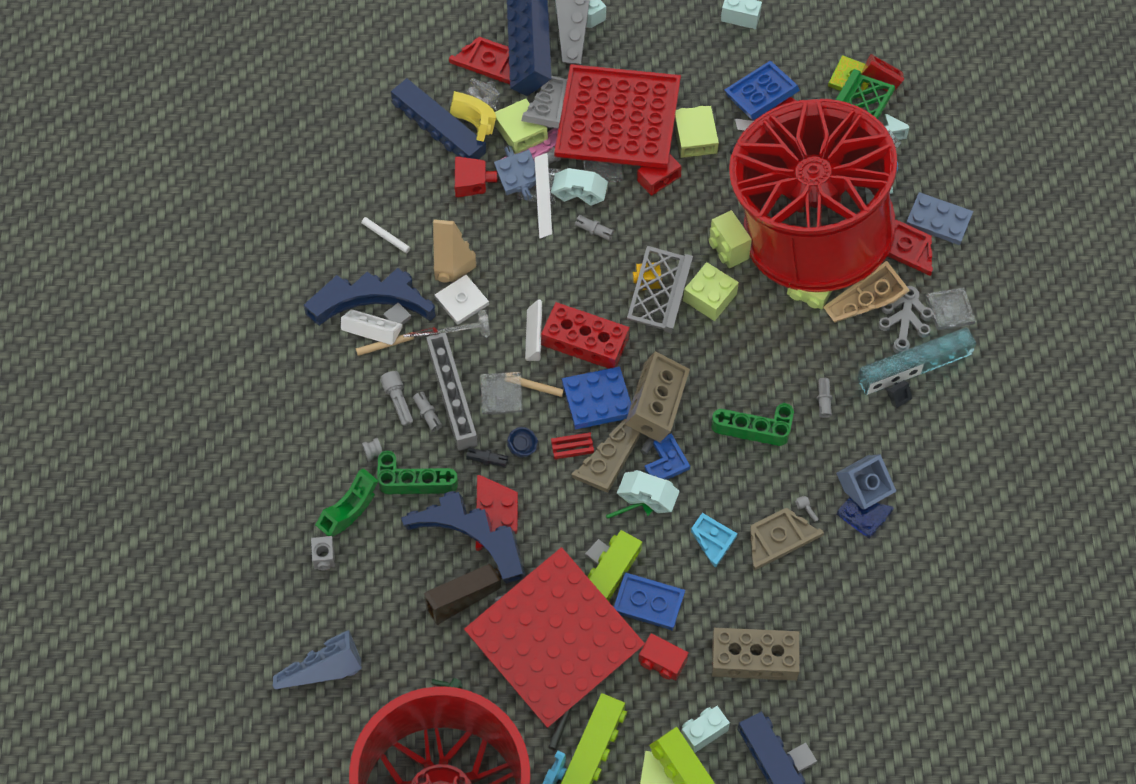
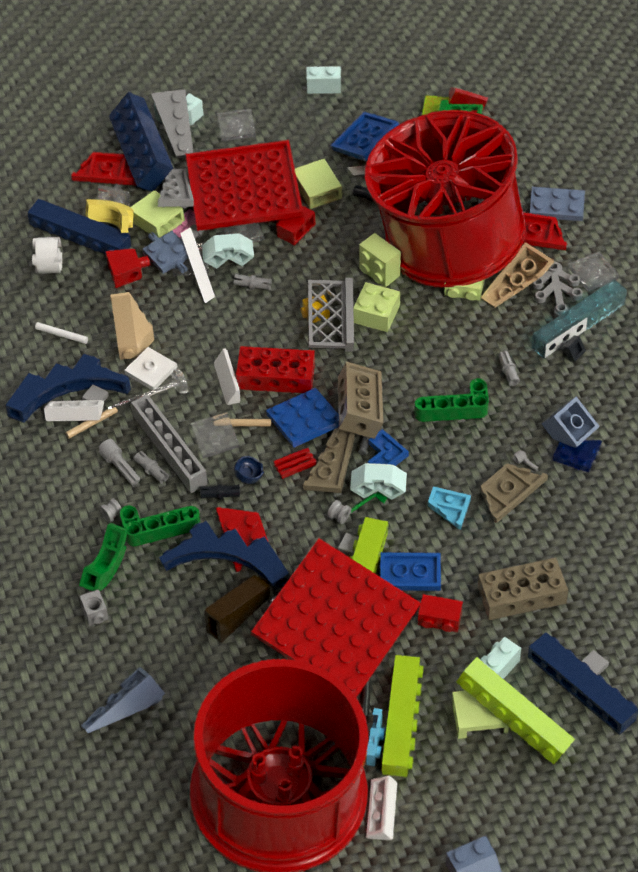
camera: 15 degrees left, 10 degrees down
(396, 145) = (47, 255): none -> white brick
(598, 514) = (339, 512): none -> light grey wheel
(635, 41) = (236, 125): none -> clear plate

